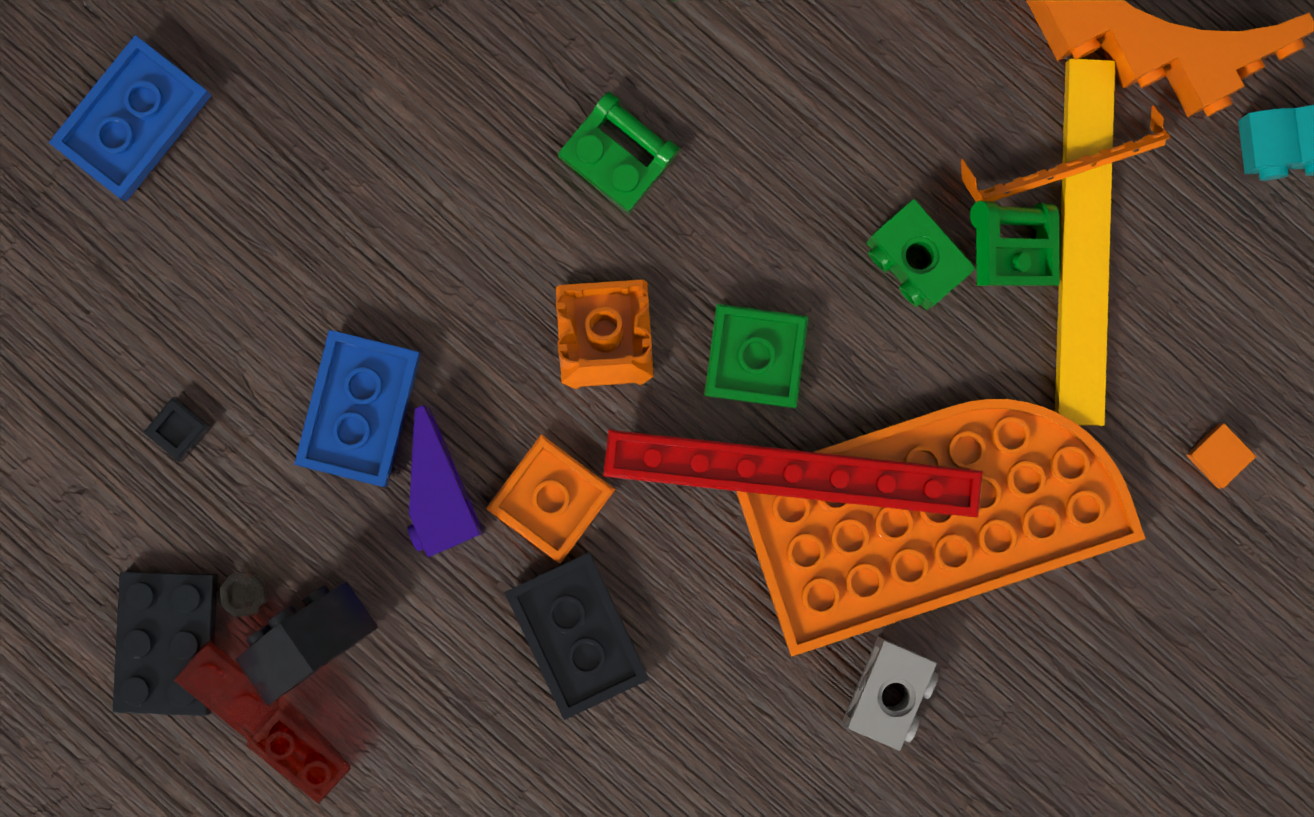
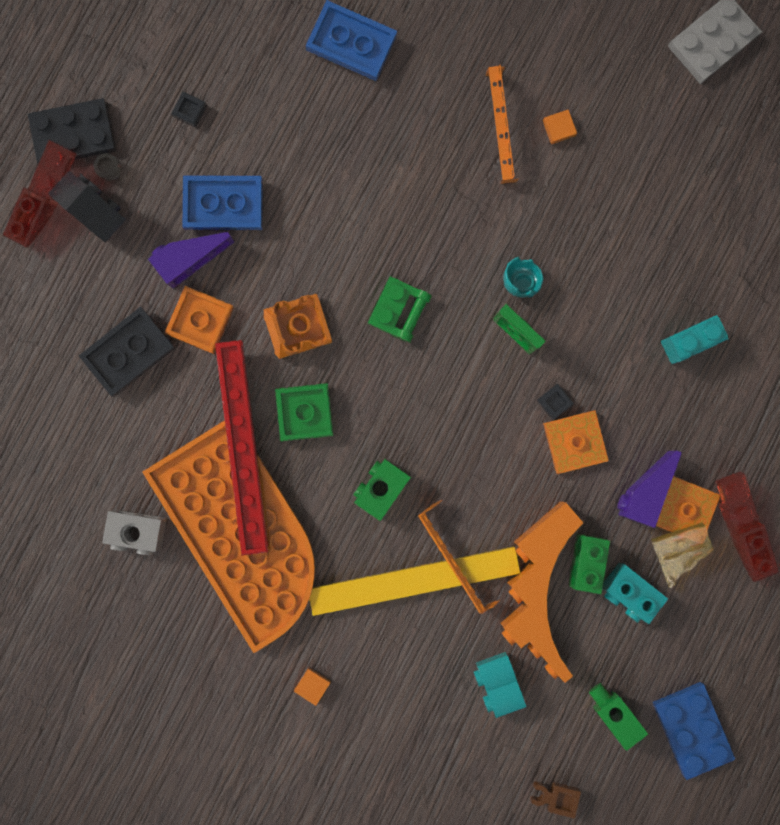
camera: 70 degrees right, 0 degrees up
(1016, 259) = (392, 545): green plate -> none

